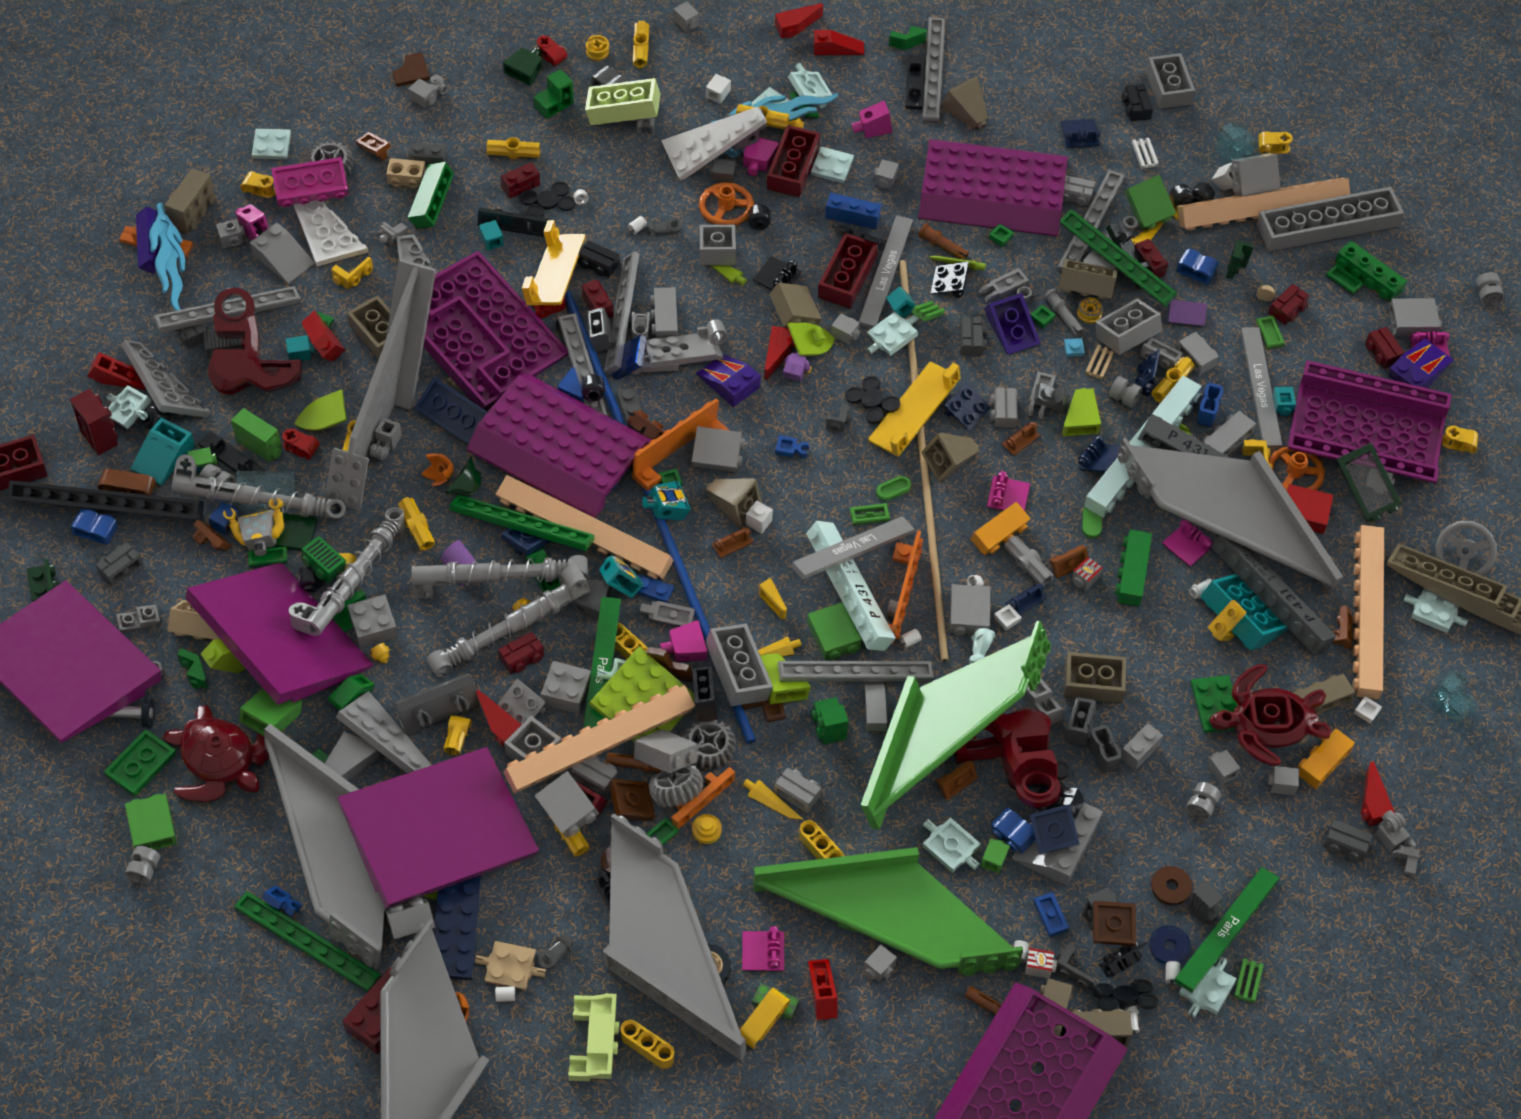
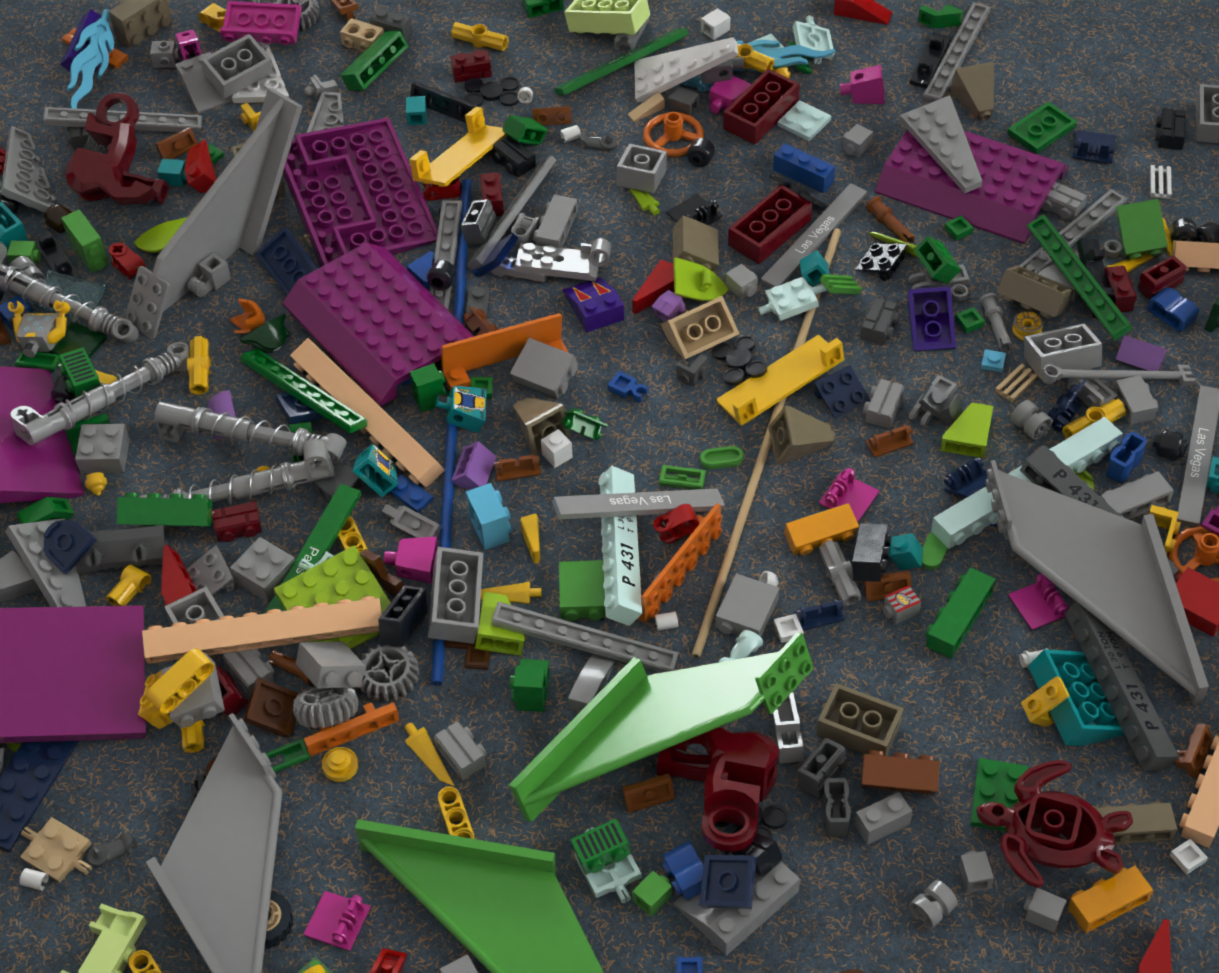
camera: 25 degrees right, 5 degrees down
(216, 418) = (53, 217): none -> dark brown head
(287, 320) = (176, 144): none -> dark orange hinge
(312, 232) = (236, 66): none -> light grey brick
(395, 712) = (66, 543): none -> dark blue tile
(463, 661) = (164, 511): none -> green brick
(534, 824) = (148, 710): none -> yellow bracket
(560, 800) = (180, 681): none -> yellow beam
(599, 232) = (524, 130): none -> green brick
(613, 212) = (552, 115): none -> dark orange hinge
(629, 492) = (426, 386): none -> green brick
(650, 144) = (621, 61): none -> green tile
(693, 184) = (650, 106): none -> tan piece
(696, 551) = (474, 466): none -> medium lavender brick
(733, 590) = (488, 516): none -> medium azure brick
(773, 490) = (591, 424): none -> green hinge
(829, 379) = (700, 328): none -> tan slope
(887, 554) = (678, 523): none -> red piece
(945, 832) = (601, 846): none -> green brick
(960, 155) = (942, 136): none -> light grey wing
(1000, 270) = (937, 260): none -> green brick
(1032, 125) = (1042, 127): none -> green plate
(1049, 537) = (871, 552): none -> brick
(1073, 529) = (906, 551): none -> teal brick
(1130, 349) = (1181, 373): none -> light grey hinge
(1142, 707) = (900, 772): none -> dark orange brick
(1179, 241) = (1164, 274): none -> dark red brick
(1238, 385) = (1170, 444): none -> black head

